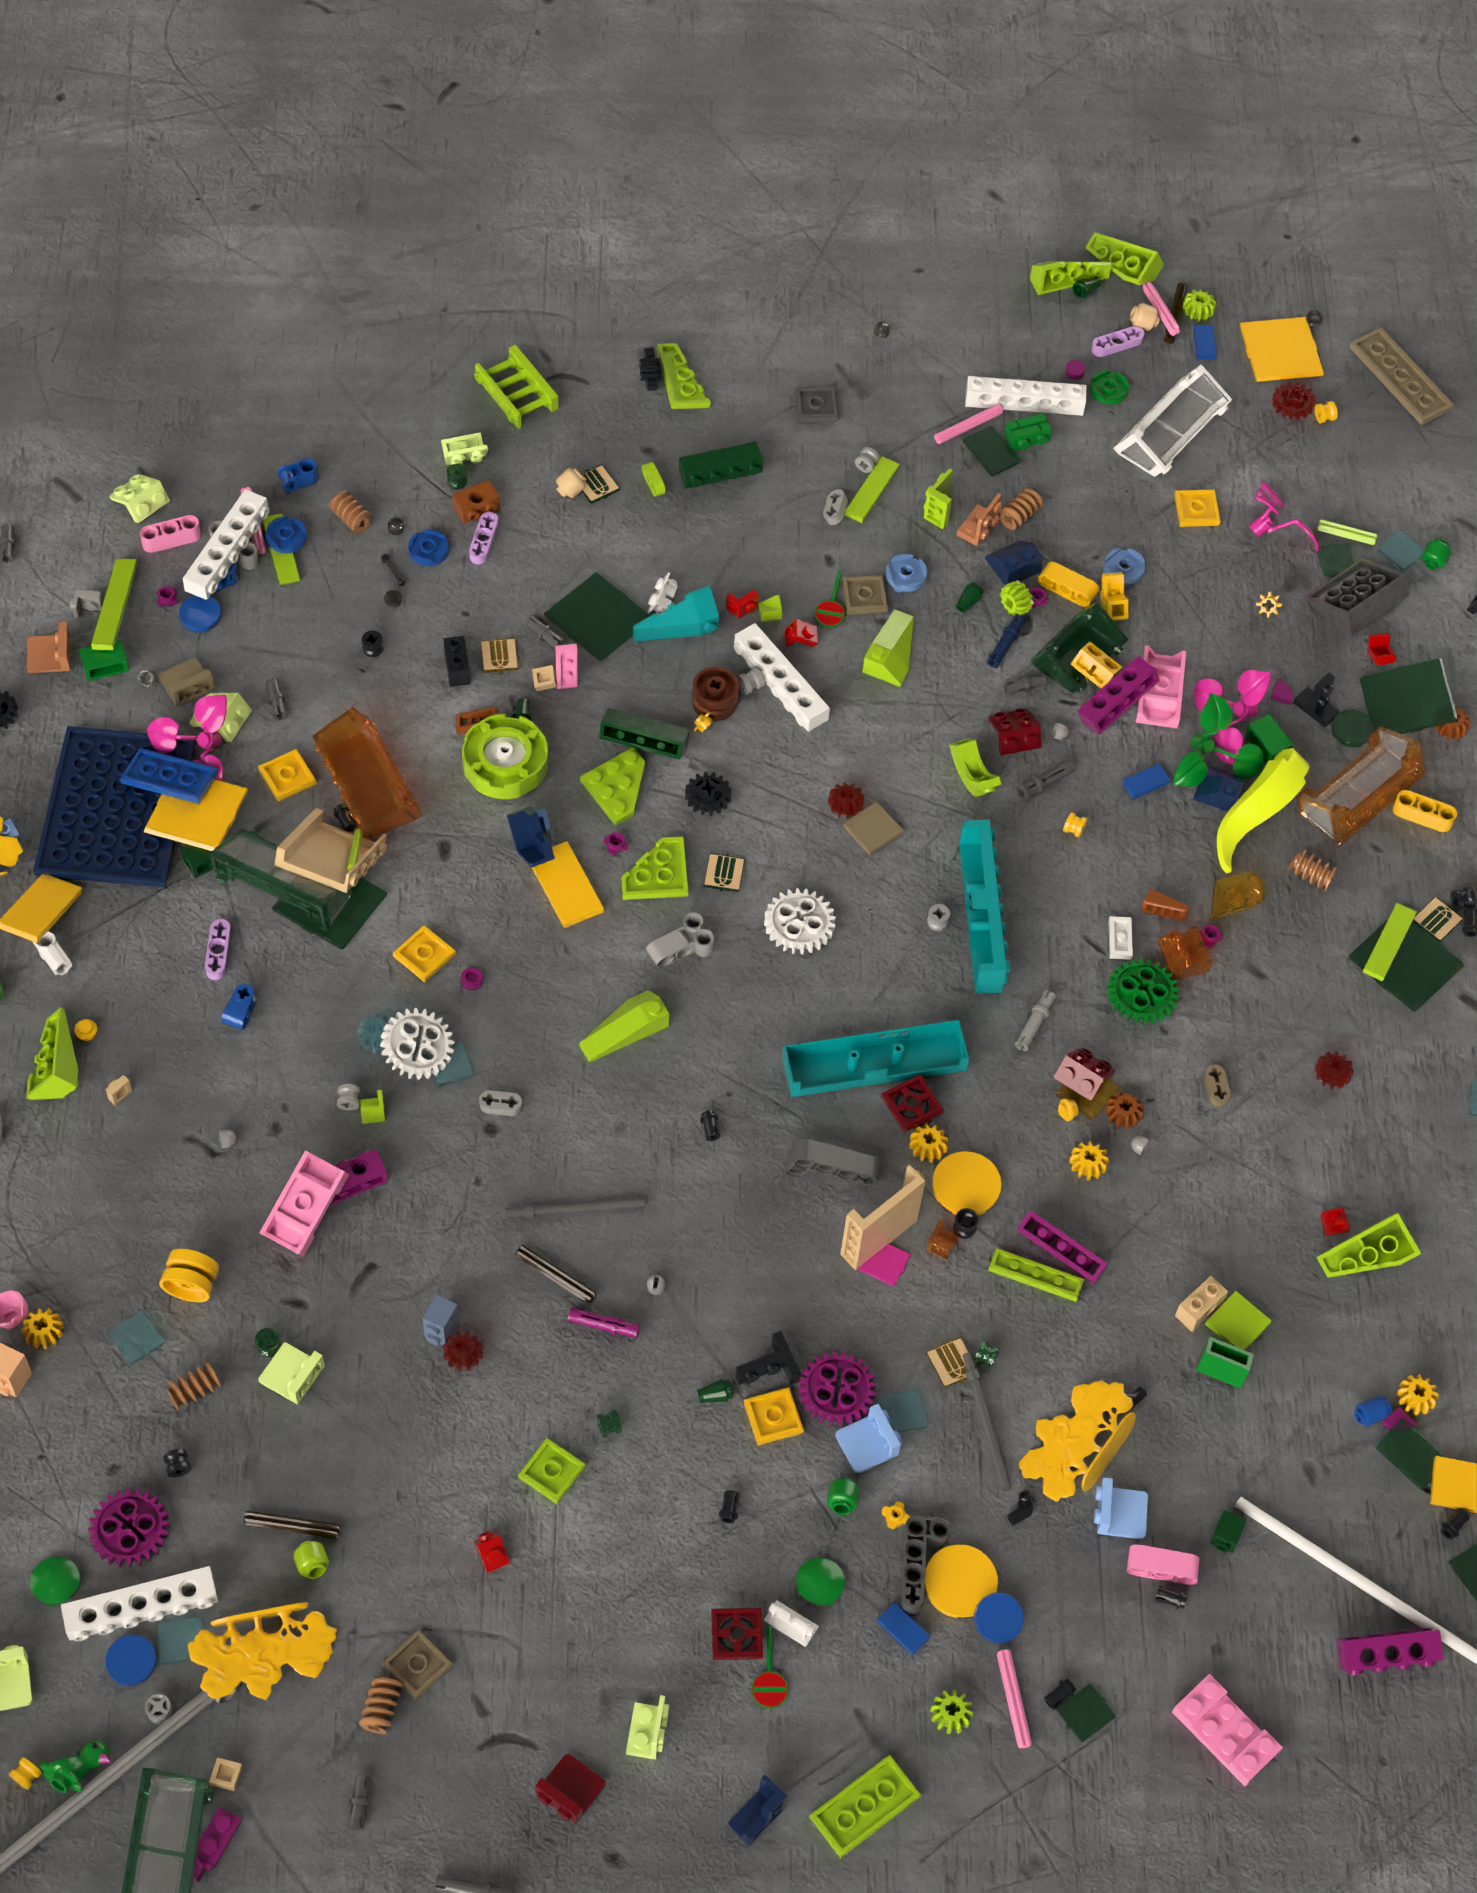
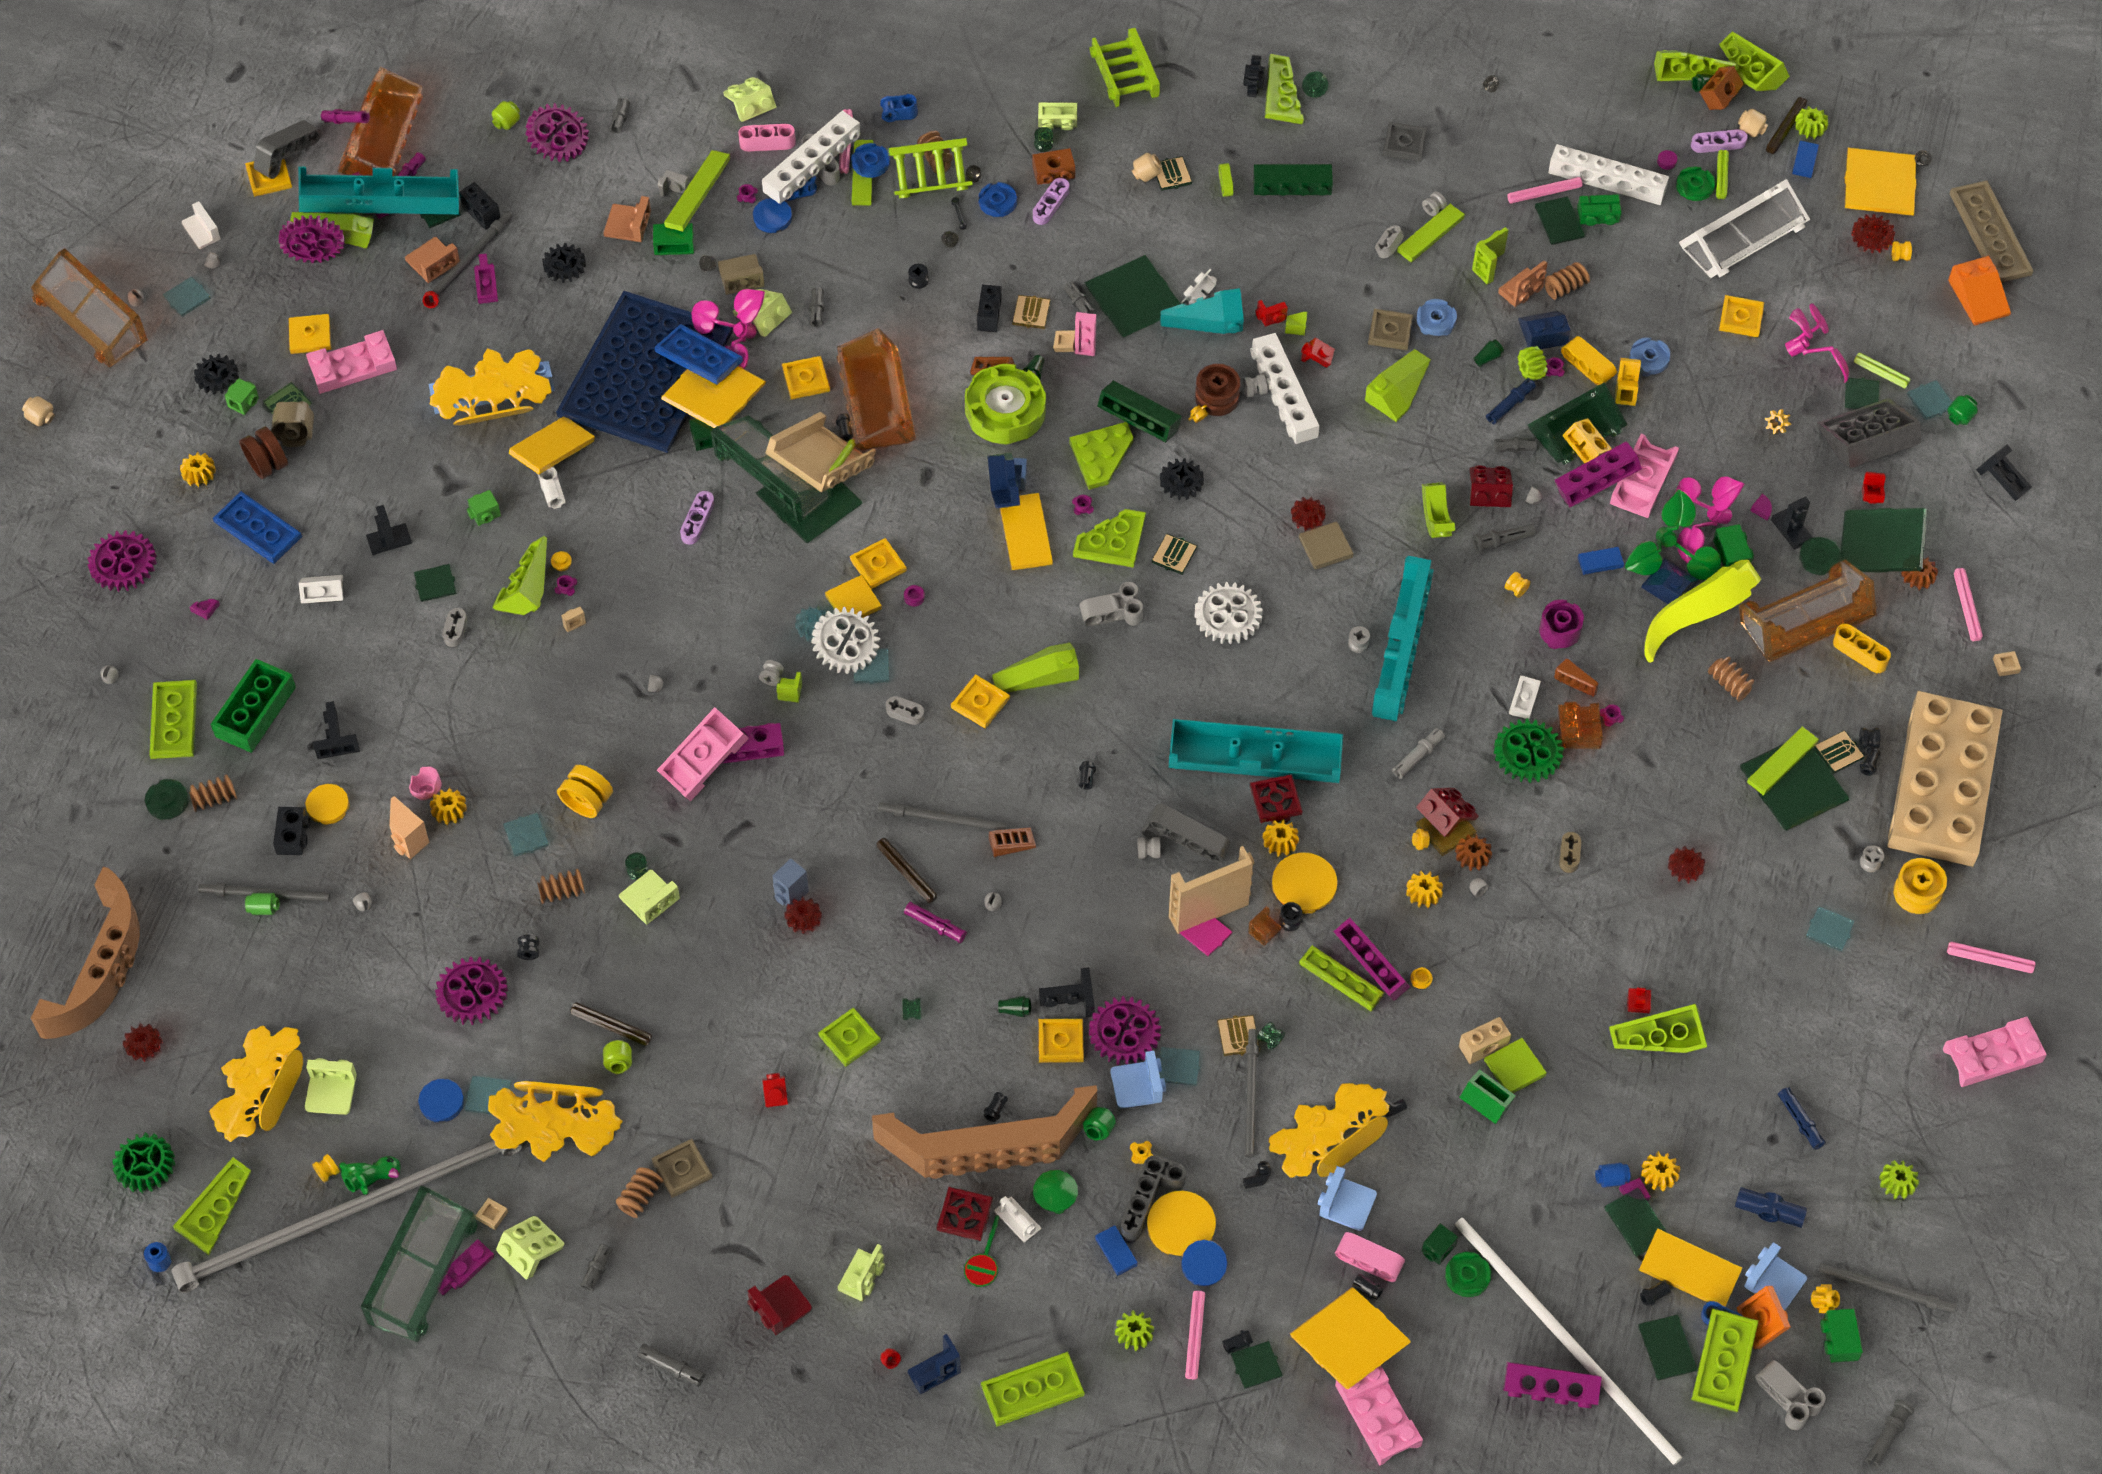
camera: 20 degrees right, 0 degrees up
(55, 1580) = (397, 1018): green dish -> none
(98, 1049) = (563, 581): none -> magenta plate
(126, 1599) = (452, 1048): white brick -> none
(155, 1704) = (454, 1141): light grey wheel -> none
(239, 1007) = (700, 572): blue piece -> none
(277, 1799) = (527, 1245): none -> yellowish green bracket
(336, 516) = (918, 152): none -> lime fence
(408, 994) = (854, 595): none -> yellow tile
(576, 1074) = (980, 701): none -> yellow plate
(645, 1228) = (1003, 849): none -> dark orange slope
(706, 1815) = (896, 1358): none -> red hinge
(710, 365) = (1315, 84): none -> clear green piece
(733, 1554) = (986, 1145): none -> medium nougat slope
(798, 1187) = (1149, 847): none -> light grey wheel
(829, 612) = (1354, 339): piece -> none
(1104, 289) = (1721, 88): none -> dark orange brick
(1115, 1254) = (1421, 978): none -> yellow plate
(1132, 373) = (1722, 174): none -> lime axle
(1132, 855) = (1561, 624): none -> magenta brick
(1163, 311) = (1771, 117): bright pink axle -> none
(1173, 1658) = (1350, 1338): none -> yellow piece
(1237, 894) = (1650, 682): clear yellow slope -> none
(1265, 1555) = (1468, 1274): none -> green tile
(1411, 434) = (1979, 290): none -> orange slope

